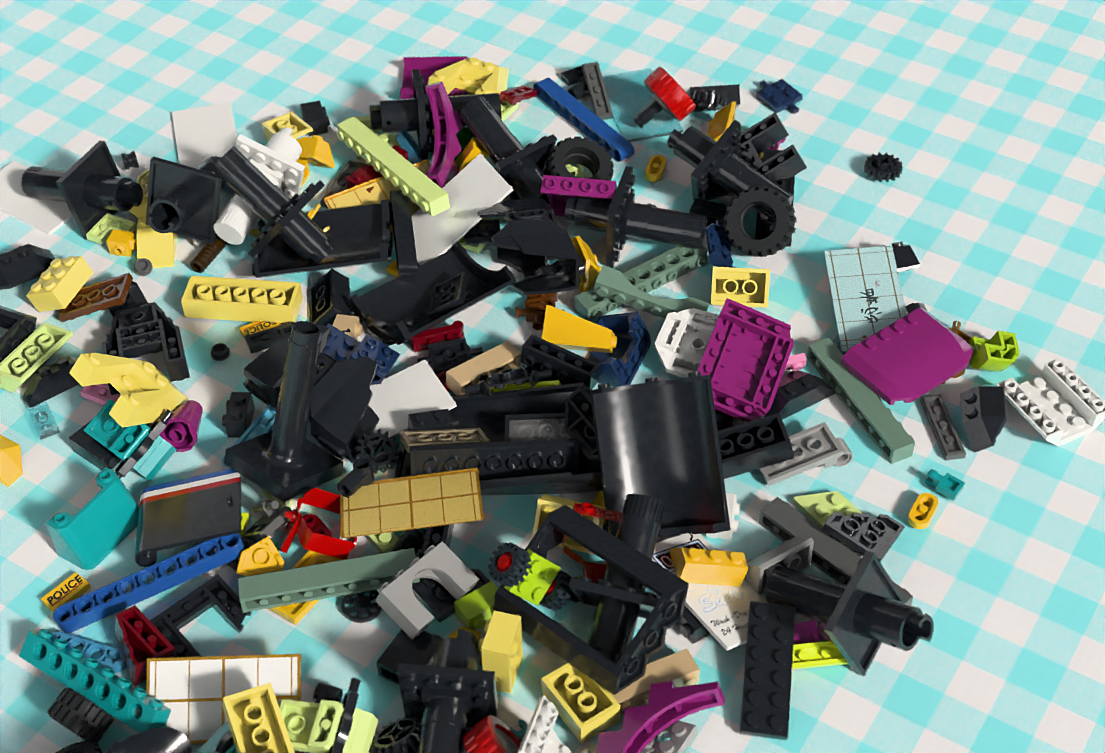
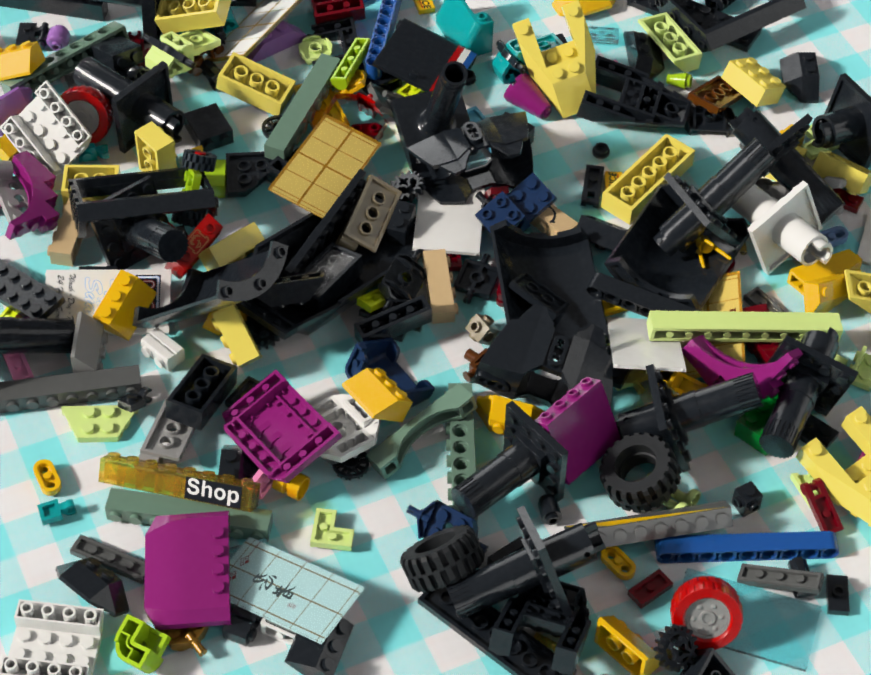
camera: 120 degrees right, 5 degrees up
(81, 339) = (680, 80): none -> lime cone
(207, 630) = (309, 43): none -> yellowish green plate
(234, 568) = (350, 63): none -> lime brick
(323, 640) = (255, 84): none -> light yellow brick
(360, 476) = (372, 145): black piece -> none
(437, 564) = (254, 152): light grey arch -> none
(508, 322) = (482, 329): none -> dark tan brick
(541, 127) = (747, 499): none -> black brick
(576, 333) = (427, 360): yellow slope -> none
(645, 175) = (664, 523): none -> dark grey brick
(653, 320) = (378, 395): none -> yellow slope
(658, 146) = (650, 588): none -> dark red plate
(741, 285) = (382, 504): light yellow brick -> none
(788, 311) = (327, 535): none -> yellowish green plate
(797, 496) = (133, 402): none -> black plate
(847, 409) = (179, 482): none -> clear yellow brick
(864, 532) = (57, 415): black plate -> none

